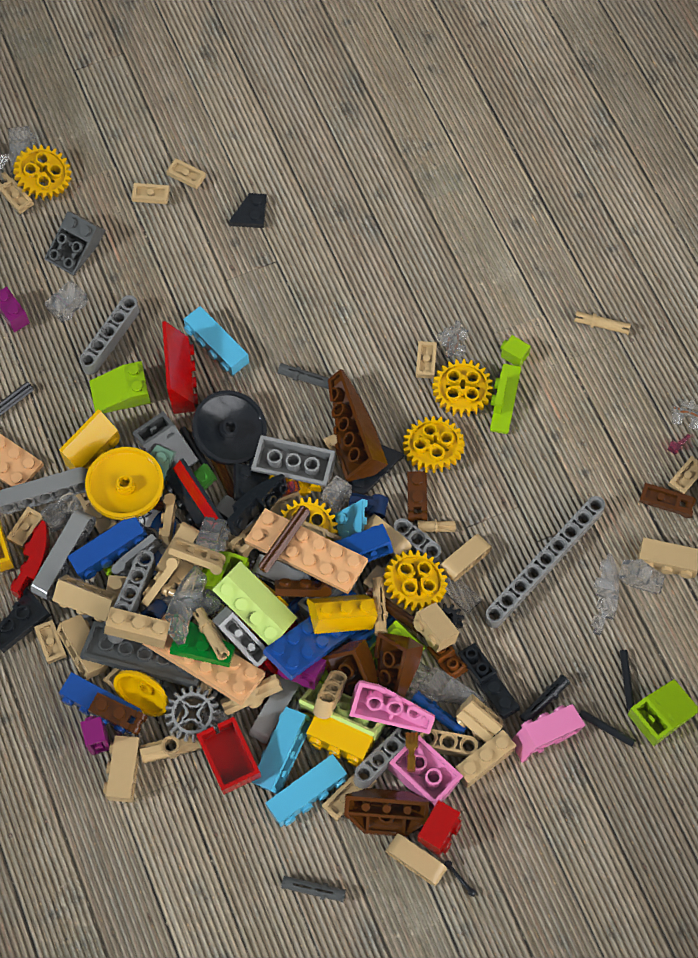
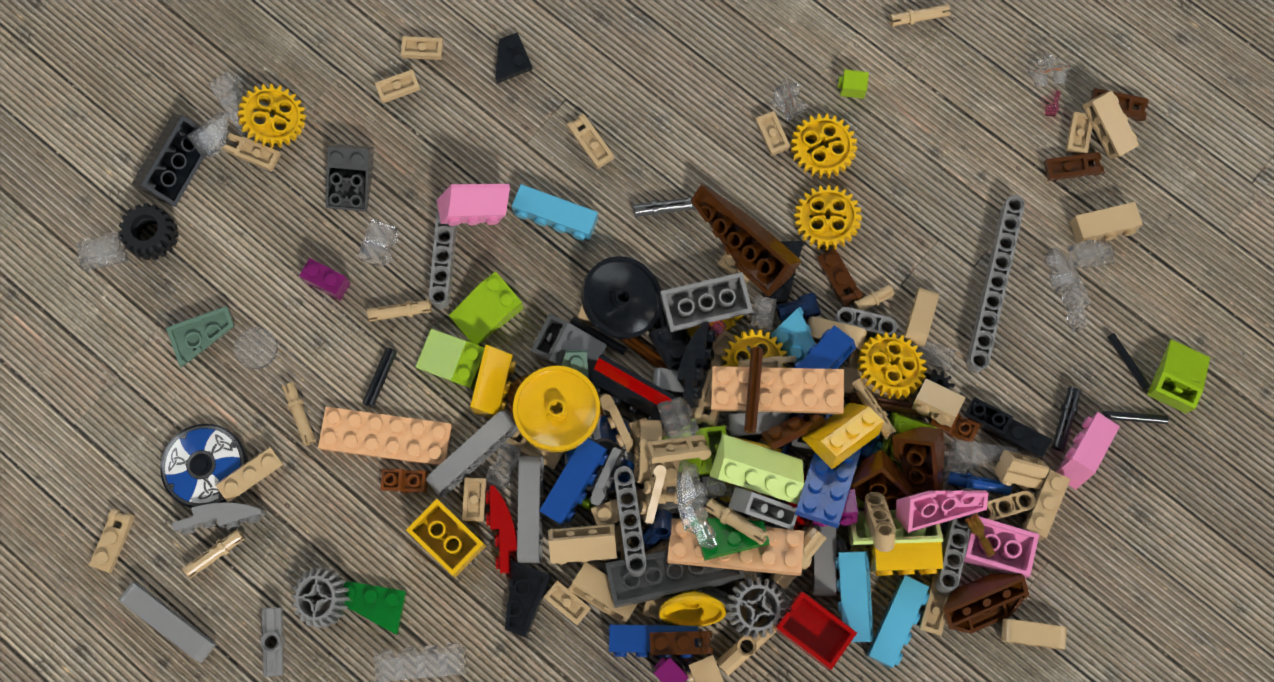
camera: 30 degrees left, 10 degrees up
(60, 361) = (405, 309): none -> tan pin
(68, 410) = (451, 358): none -> lime slope
(137, 627) = (662, 553): tan brick -> none
(153, 301) = (473, 204): none -> bright pink slope
(179, 370) = (539, 262): red slope -> none
(205, 476) = (624, 357): bright green plate -> none
(276, 301) = (590, 141): none -> tan plate
(439, 828) = (1045, 595): red slope -> none
(471, 892) = (1063, 622): black hinge -> none
(505, 398) = (869, 137): lime bracket -> none

